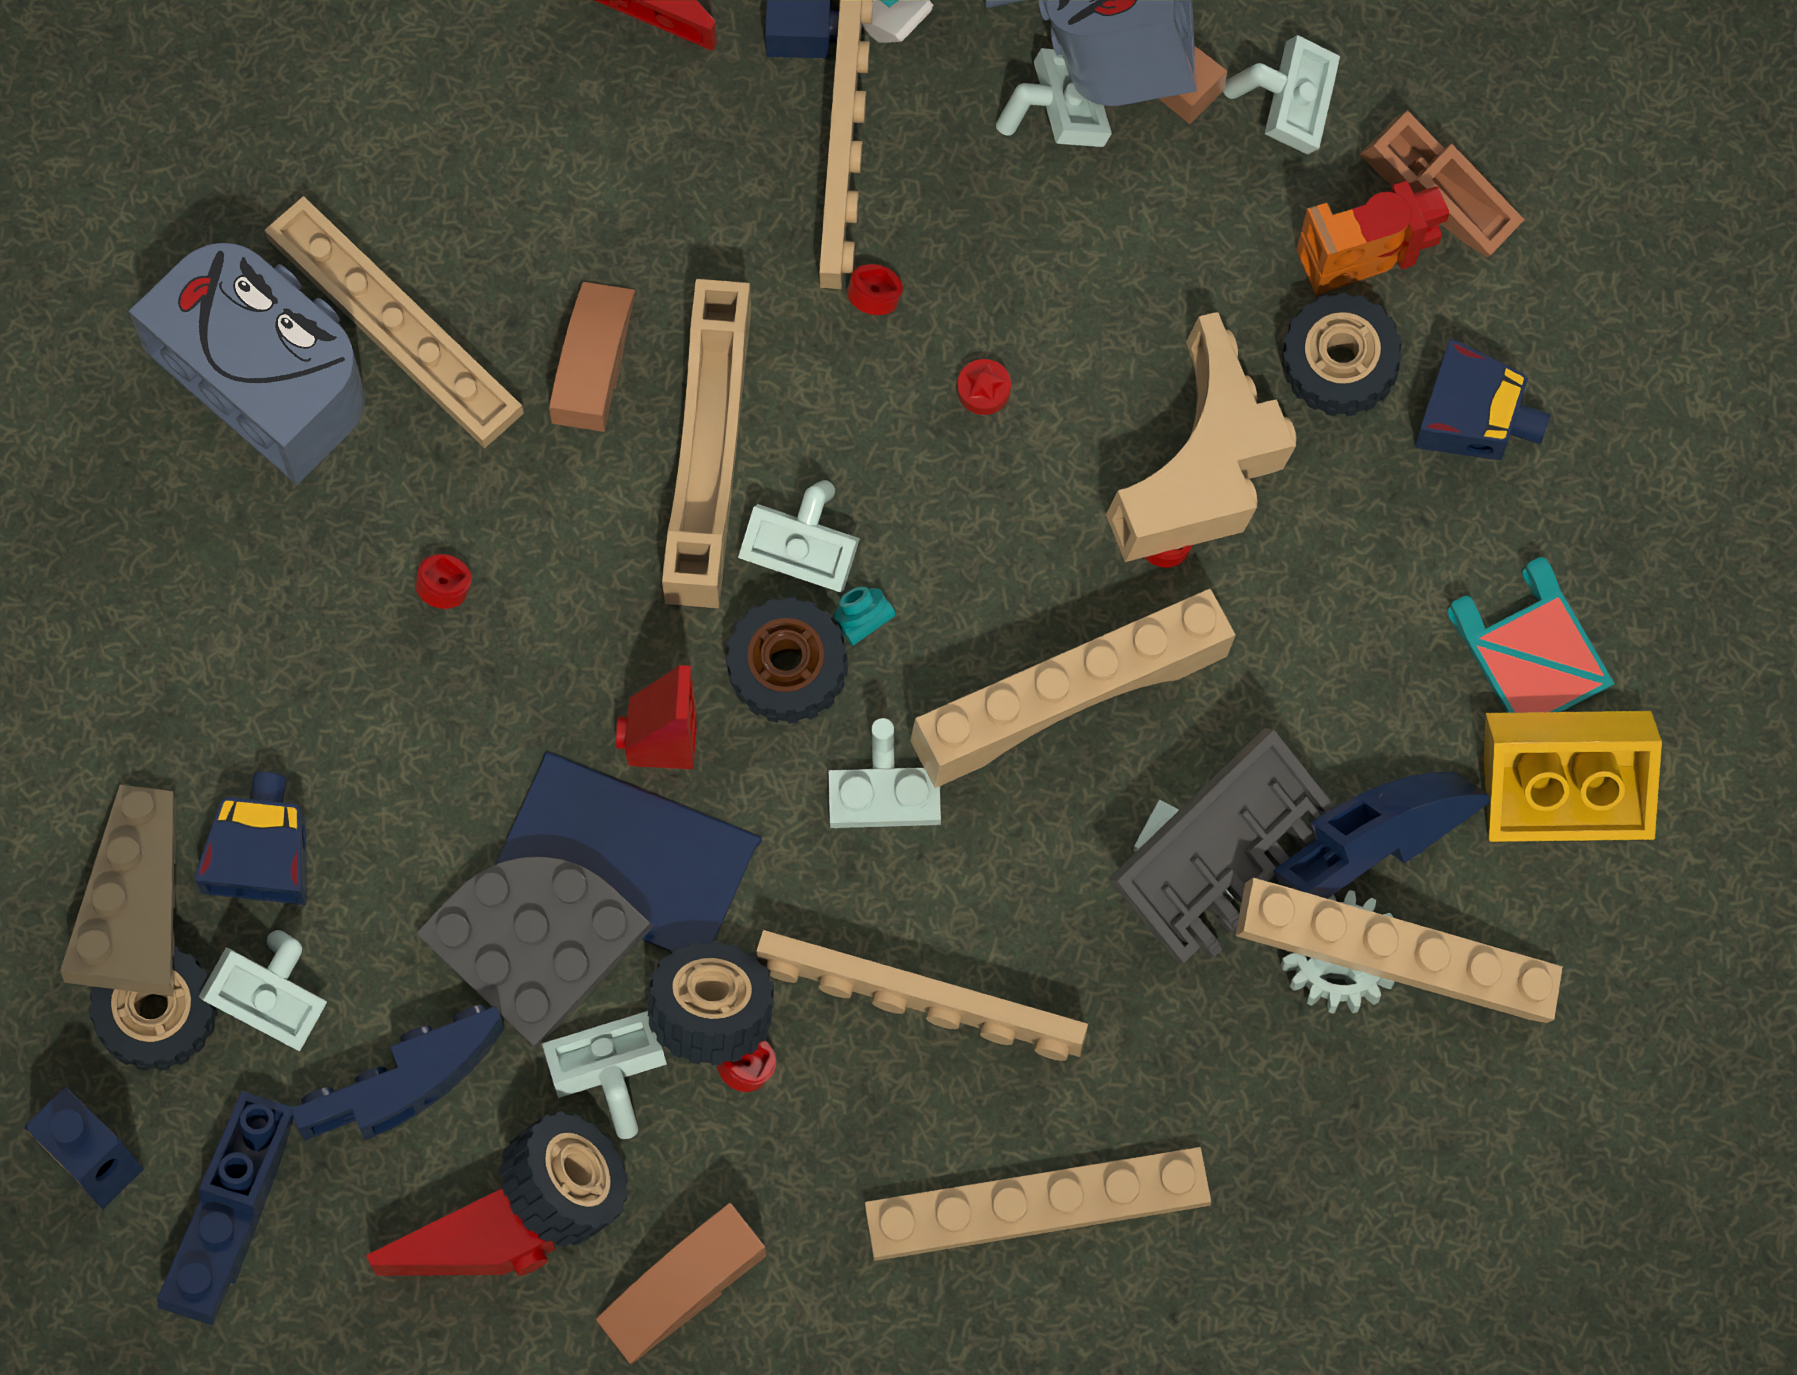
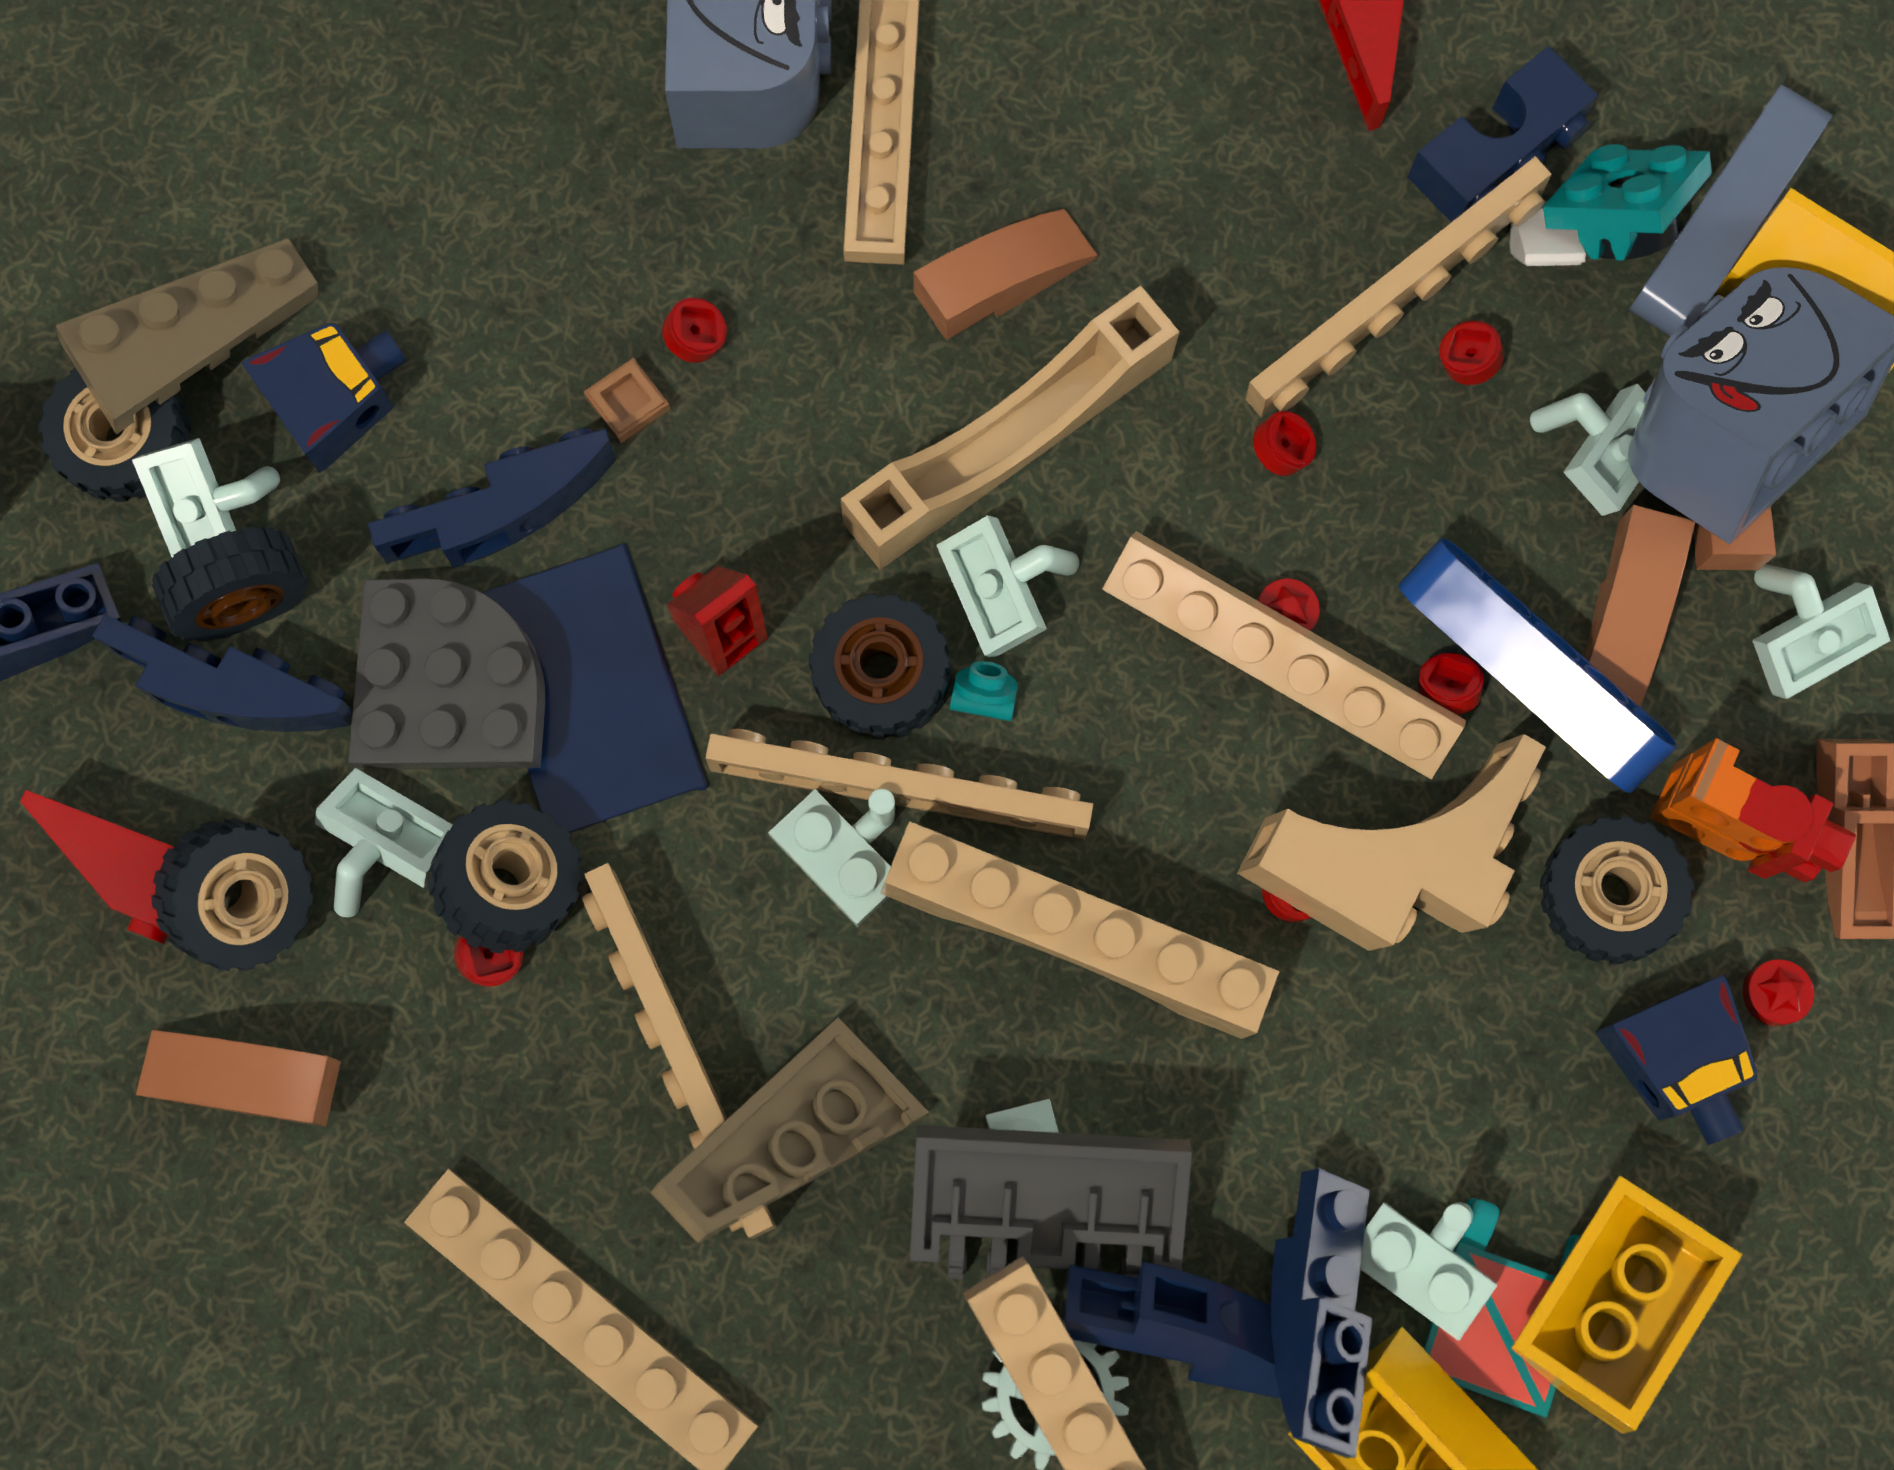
camera: 45 degrees right, 5 degrees up
(348, 1010) = (229, 583): none -> black wheel
(448, 666) = (627, 400): none -> medium nougat tile
(455, 785) = (525, 494): none -> dark blue slope
(893, 701) = (927, 788): none -> tan plate
(923, 125) = (1471, 352): none -> red tile
(1010, 413) = (1284, 655): none -> tan plate
(1040, 961) = (795, 1128): none -> dark tan wing
(1124, 332) = (1452, 682): none -> red tile
(1160, 271) = (1537, 665): none -> beam
(1179, 182) = (1638, 597): none -> nougat slope
(1434, 756) = (1314, 1322): none -> dark blue slope
(1463, 670) = (1425, 1268): none -> light aqua plate
(1489, 320) = (1778, 992): none -> red tile
(1589, 574) = (1625, 1305): none -> yellow slope

